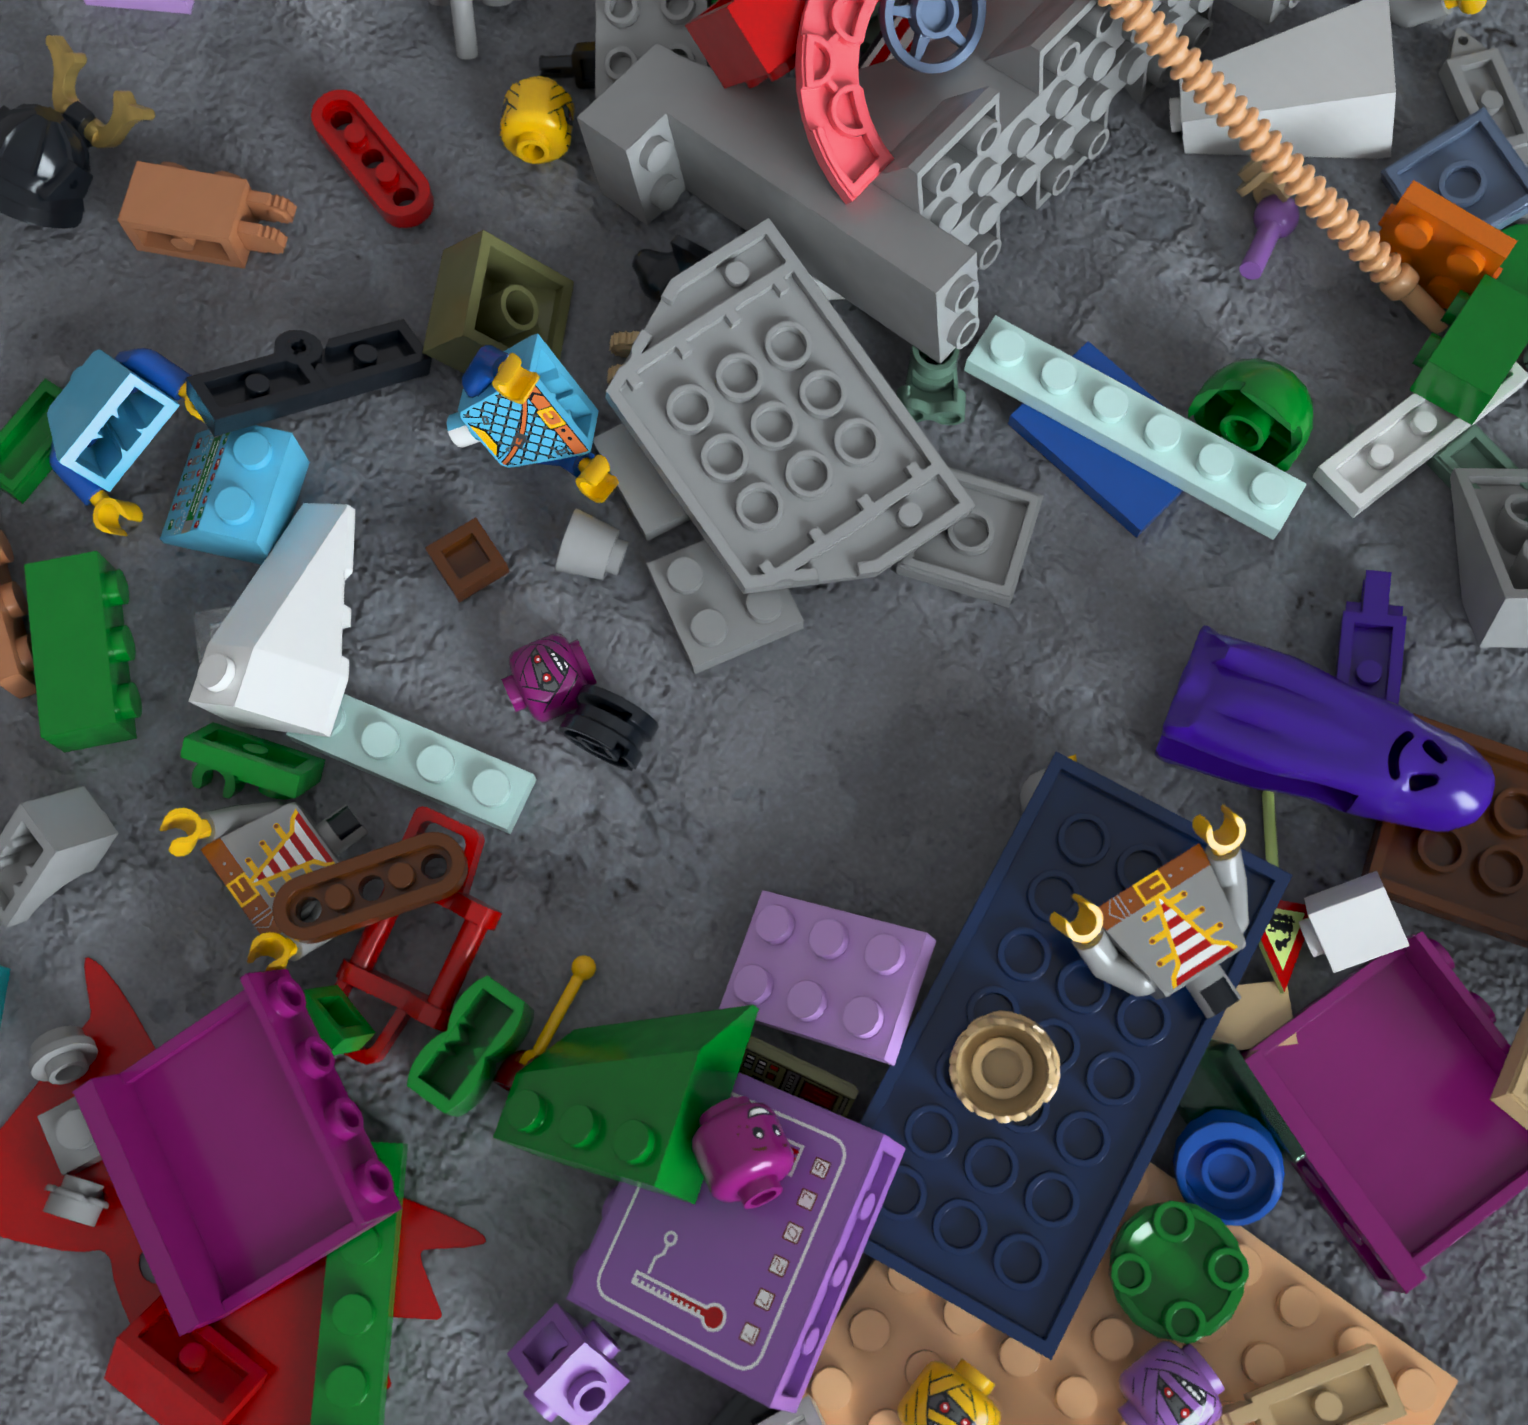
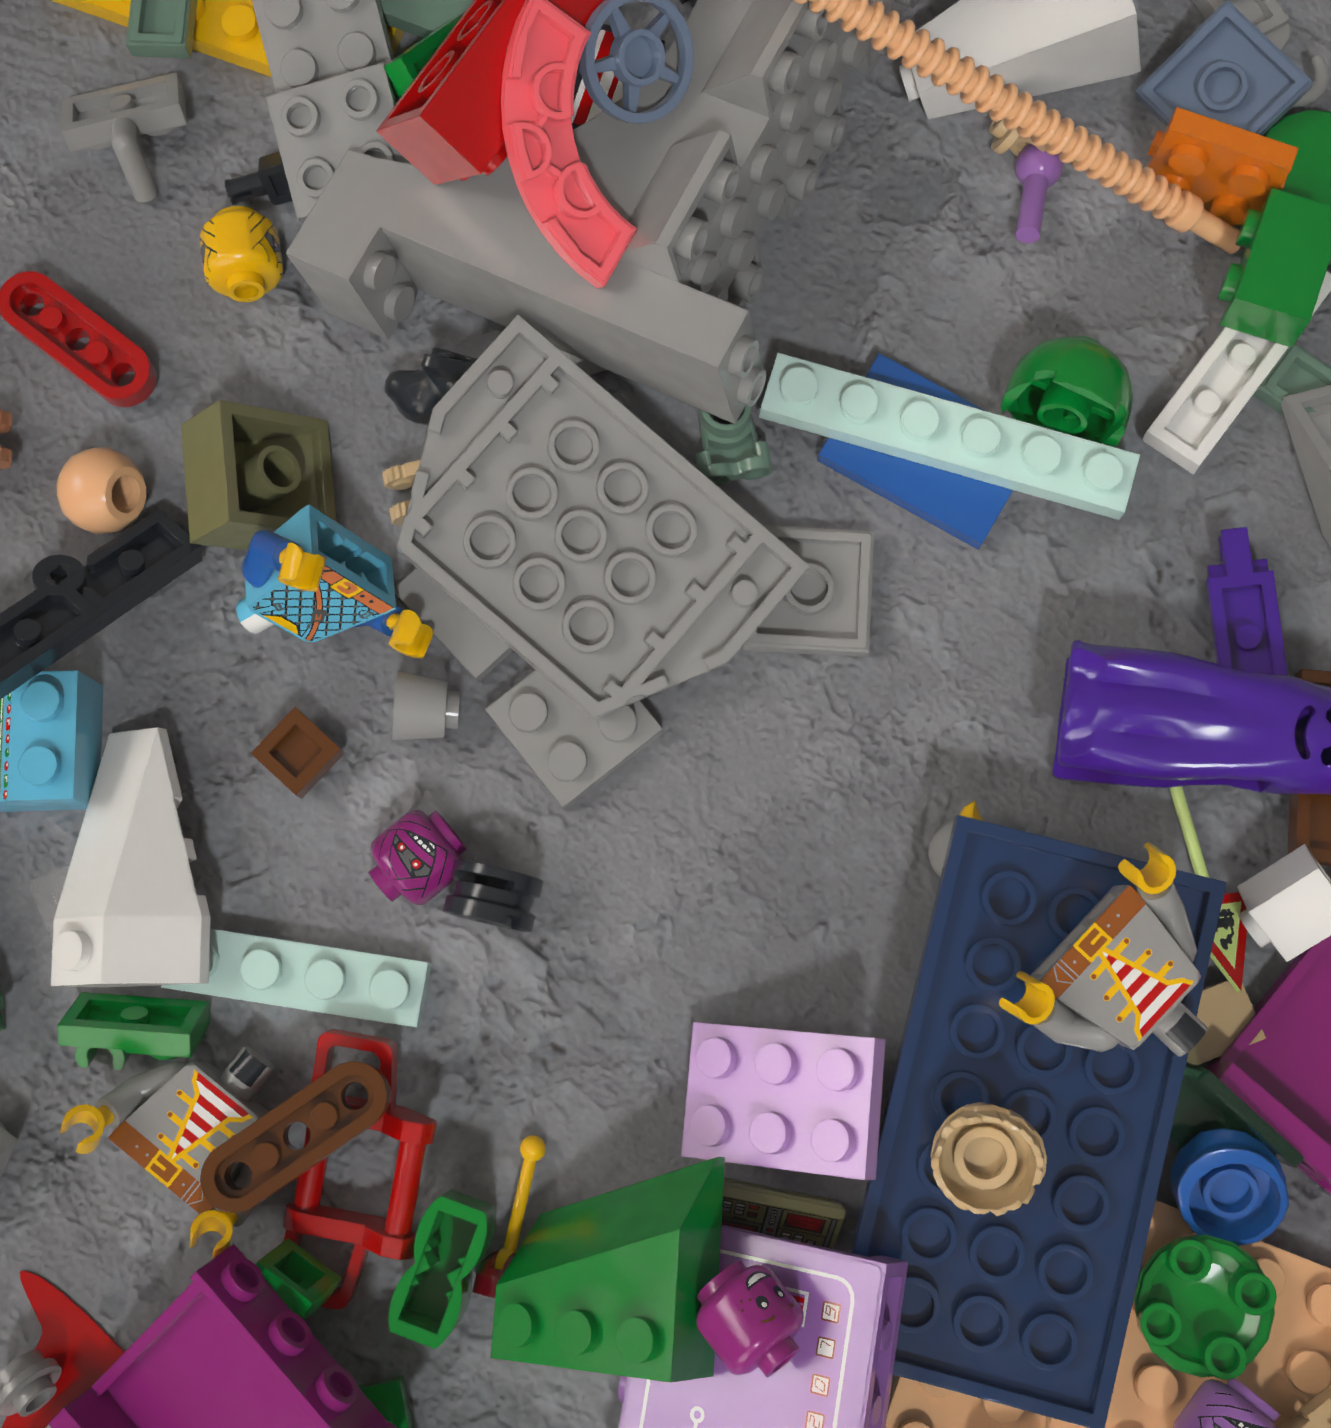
camera: 10 degrees left, 5 degrees up
(353, 285) = (101, 490): none -> light nougat piece

